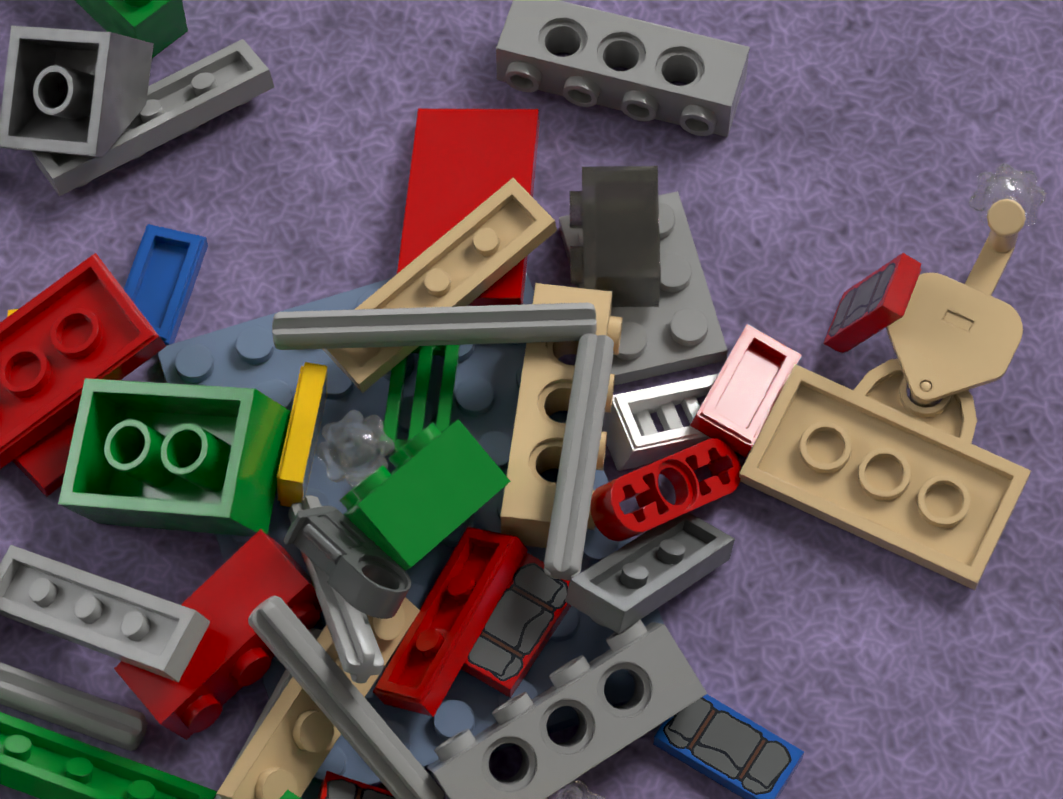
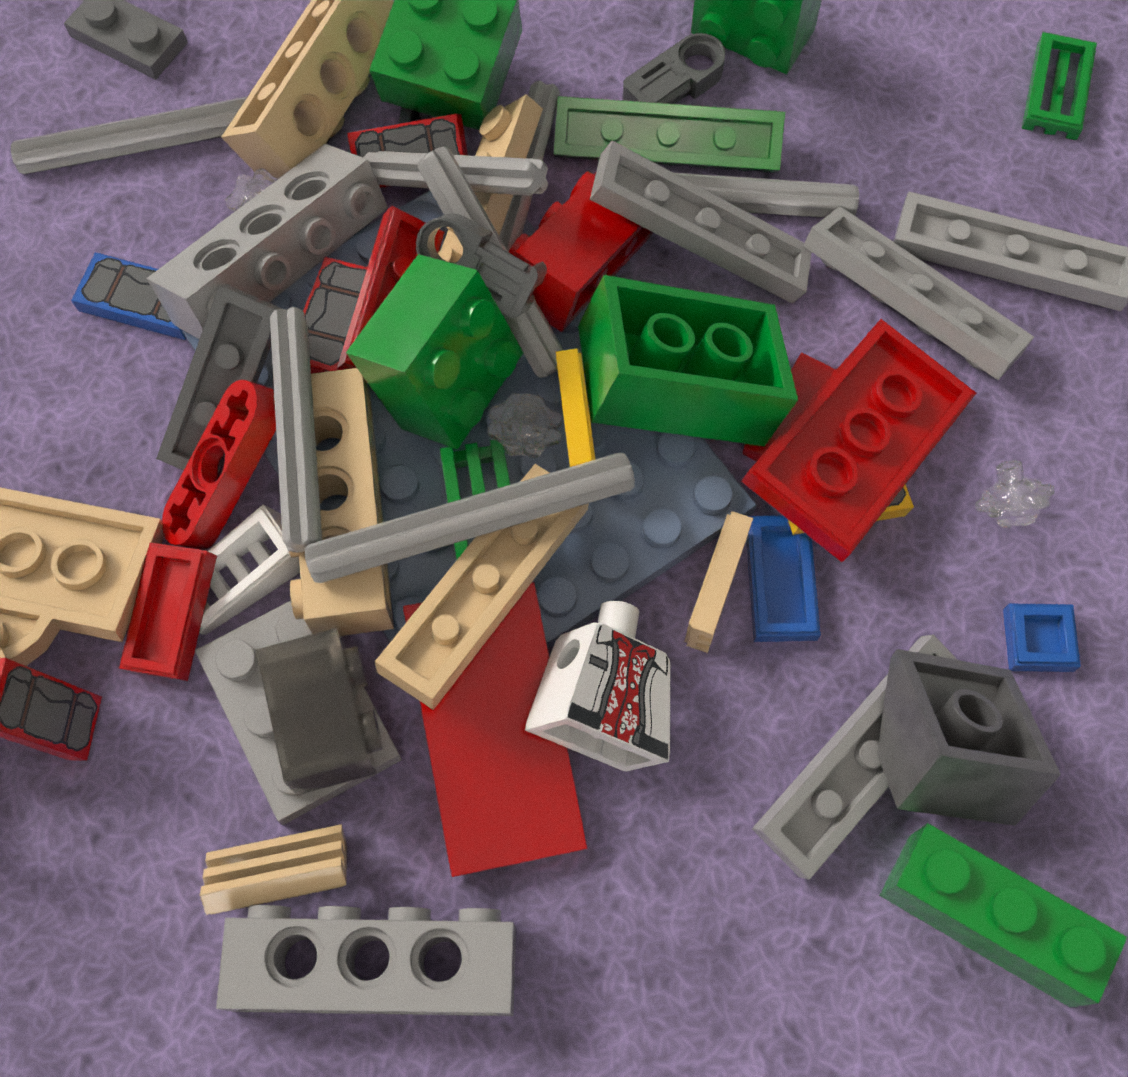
camera: 165 degrees right, 5 degrees up
(222, 282) = (717, 581): none -> tan tile
(361, 201) = (606, 693): none -> white torso
(691, 129) = (274, 869): none -> tan tile

